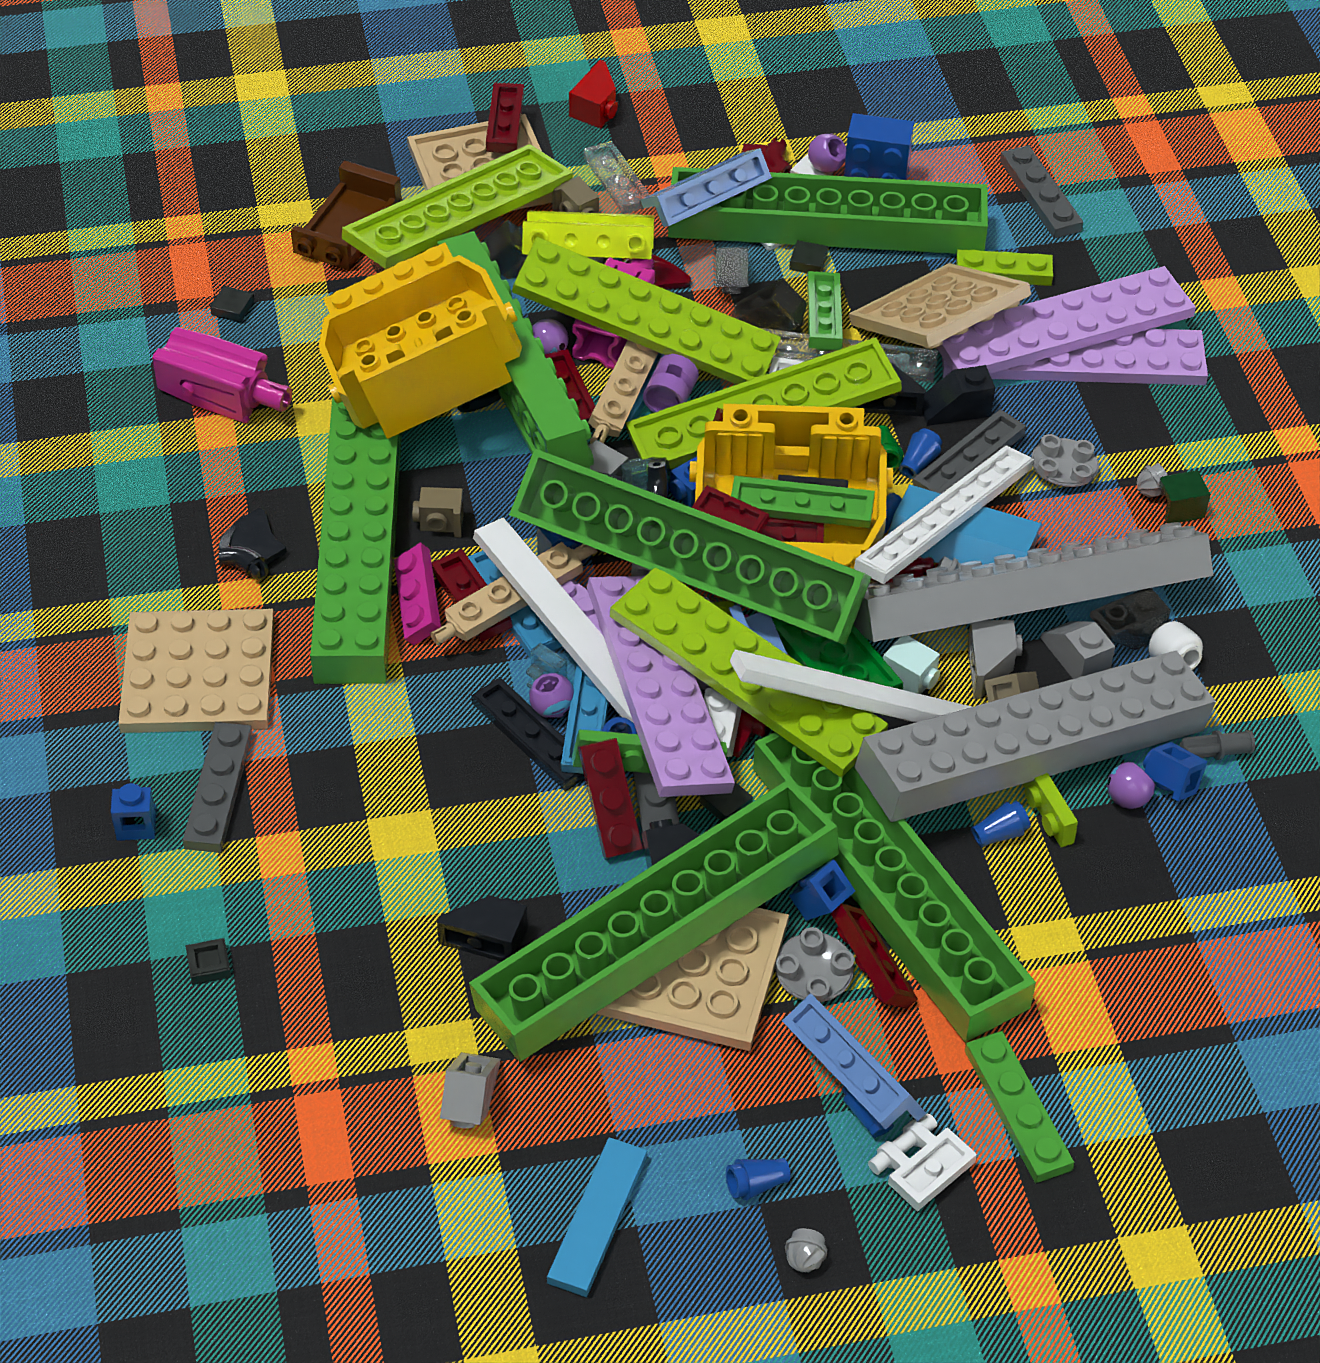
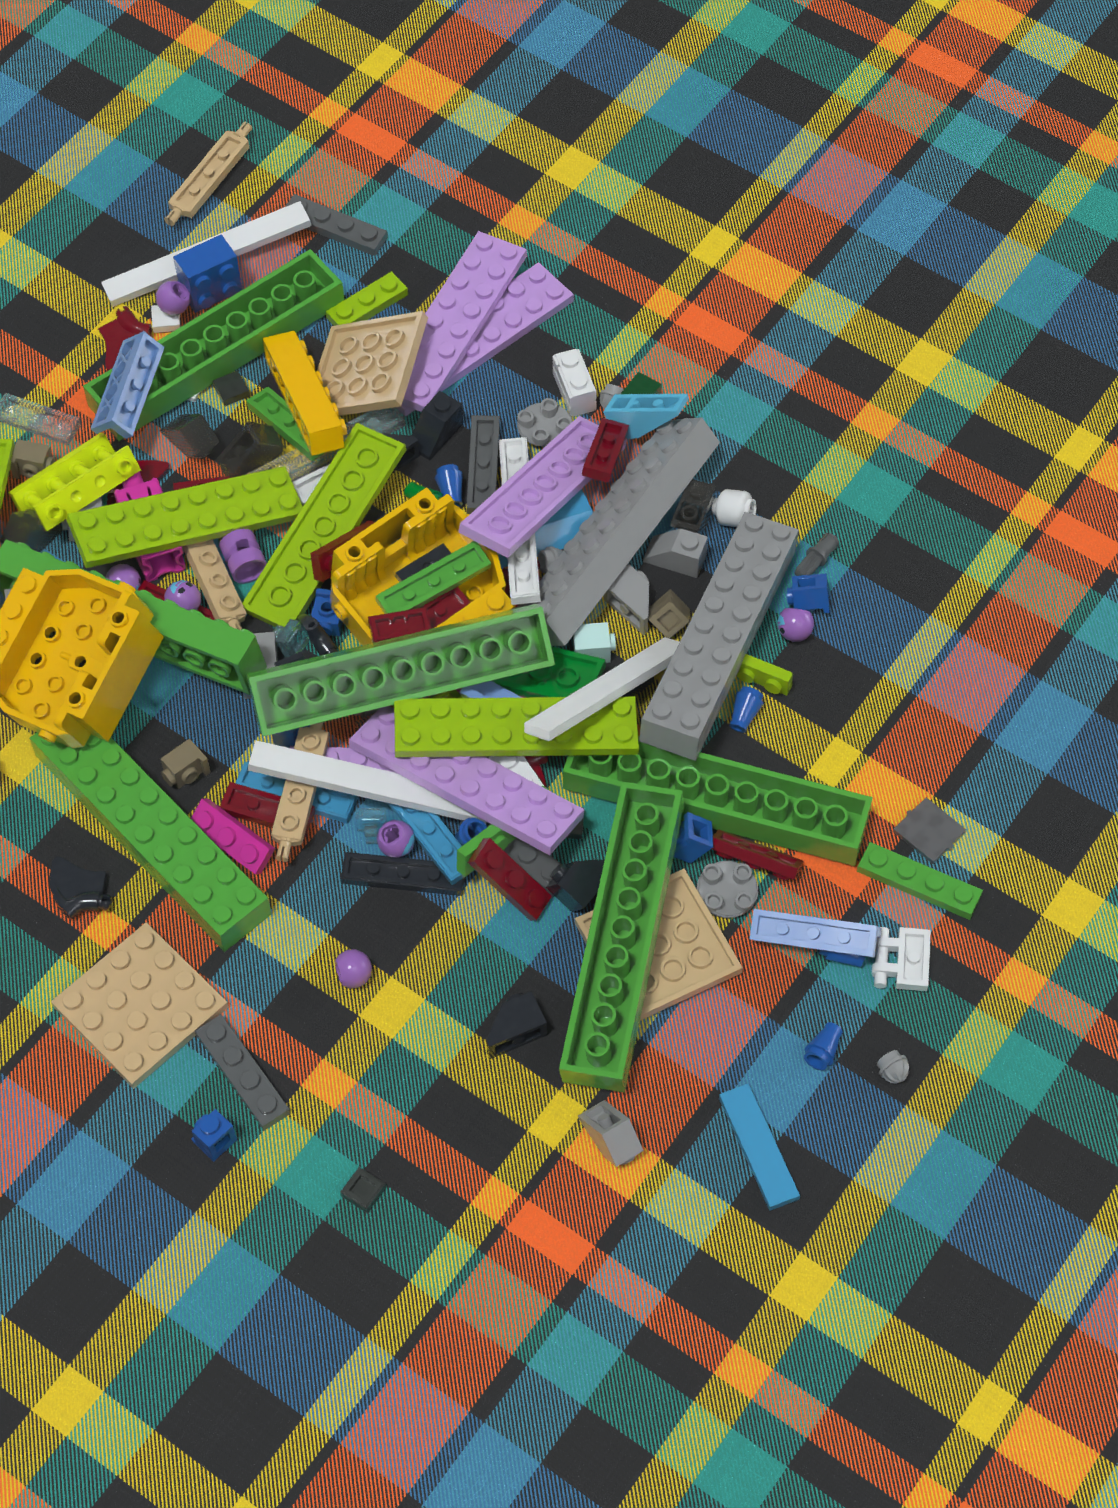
camera: 40 degrees left, 10 degrees up
(398, 772) = (353, 968): none -> medium lavender piece
(578, 376) = (184, 594): none -> medium lavender piece
(858, 290) = (304, 393): none -> yellow brick
(925, 146) = (241, 240): none -> white tile
(968, 87) = (208, 174): none -> tan plate
(994, 496) = (533, 492): none -> lavender plate
(1079, 1070) = (929, 830): none -> flat silver piece
(1089, 508) = (605, 450): none -> dark red plate
(1128, 444) = (574, 382): none -> white brick
(1156, 501) = (644, 411): none -> medium azure slope

